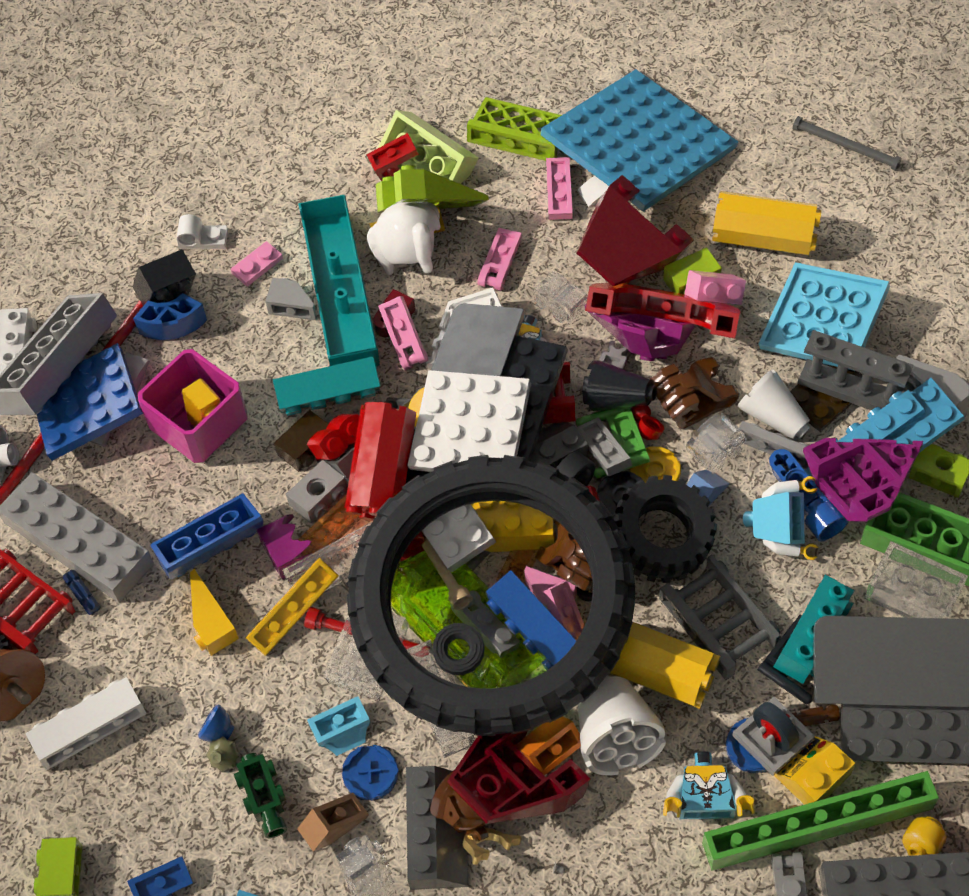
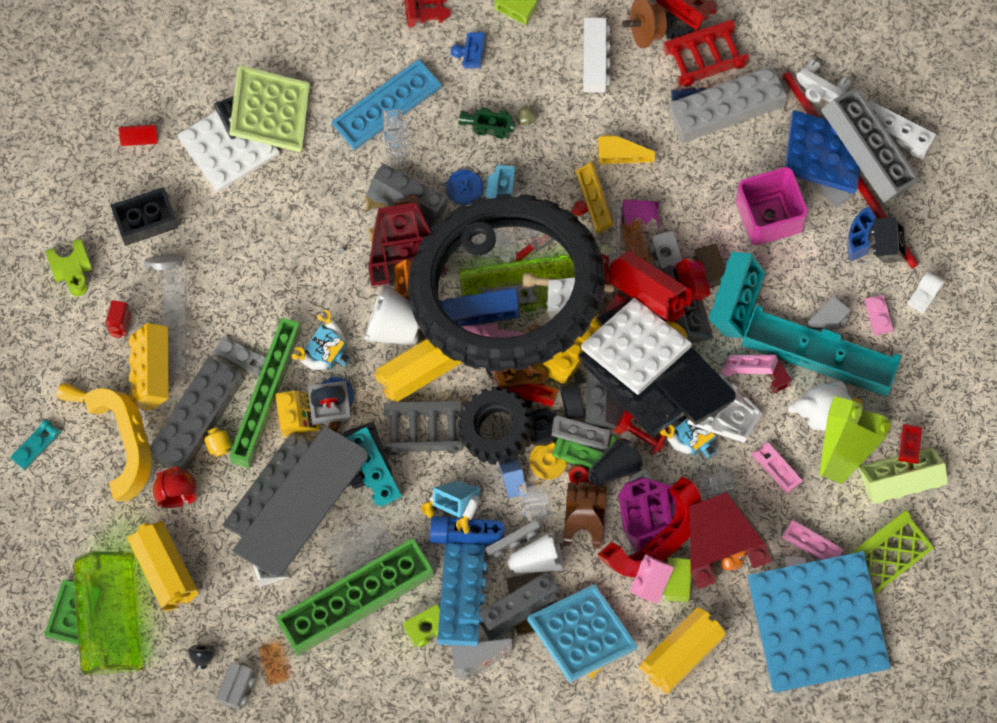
camera: 120 degrees right, 10 degrees up
(199, 401) = (763, 208): yellow brick -> none
(207, 536) = (671, 172): blue slope -> none
(216, 725) = (547, 121): blue brick -> none
(332, 821) = (446, 150): medium nougat slope -> none
(861, 474) = (444, 556): magenta wedge -> none

